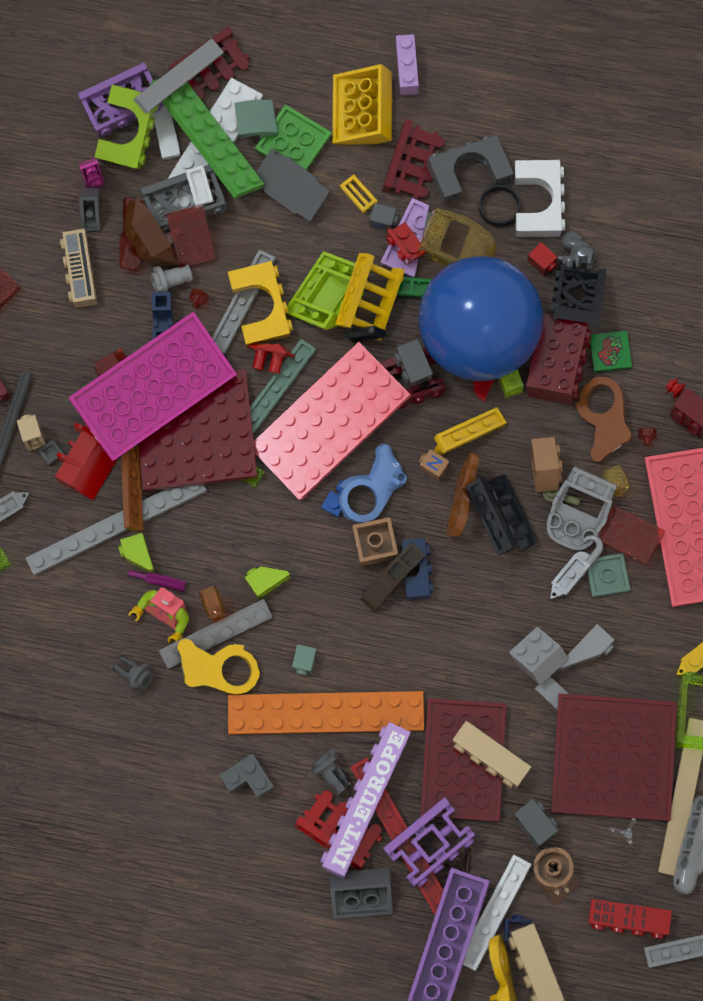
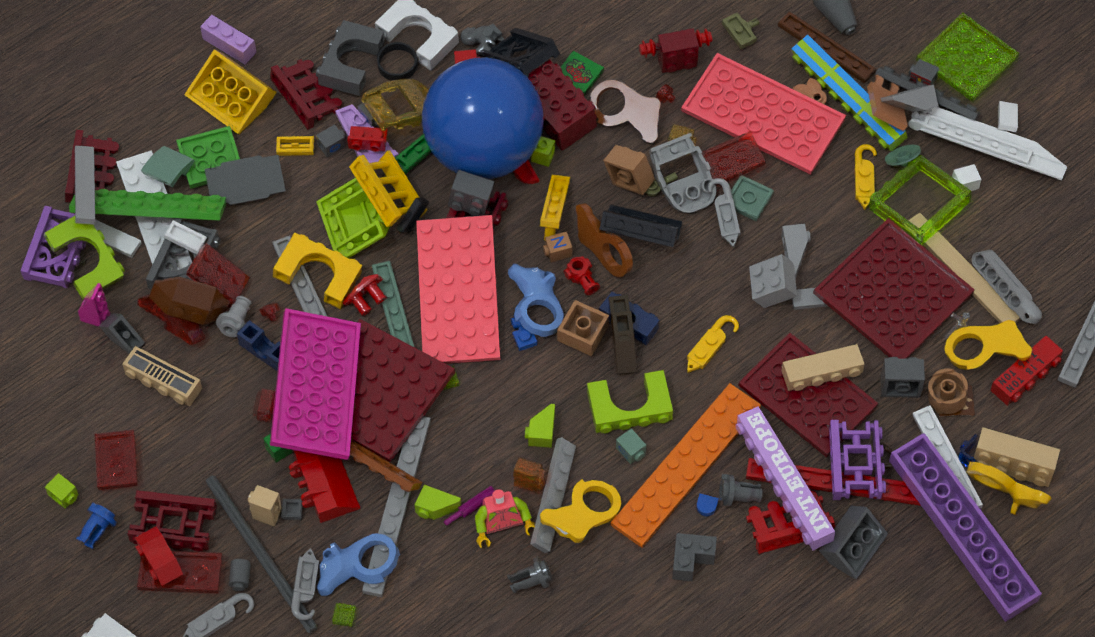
camera: 55 degrees left, 15 degrees down
(36, 527) = (342, 564): none -> medium blue animal
(302, 755) = (706, 504): none -> blue tile
(354, 652) = (609, 417): none -> lime arch
(424, 504) = (583, 275): none -> red connector
(447, 648) = (709, 344): none -> yellow plate
(634, 874) = (1000, 338): none -> yellow animal

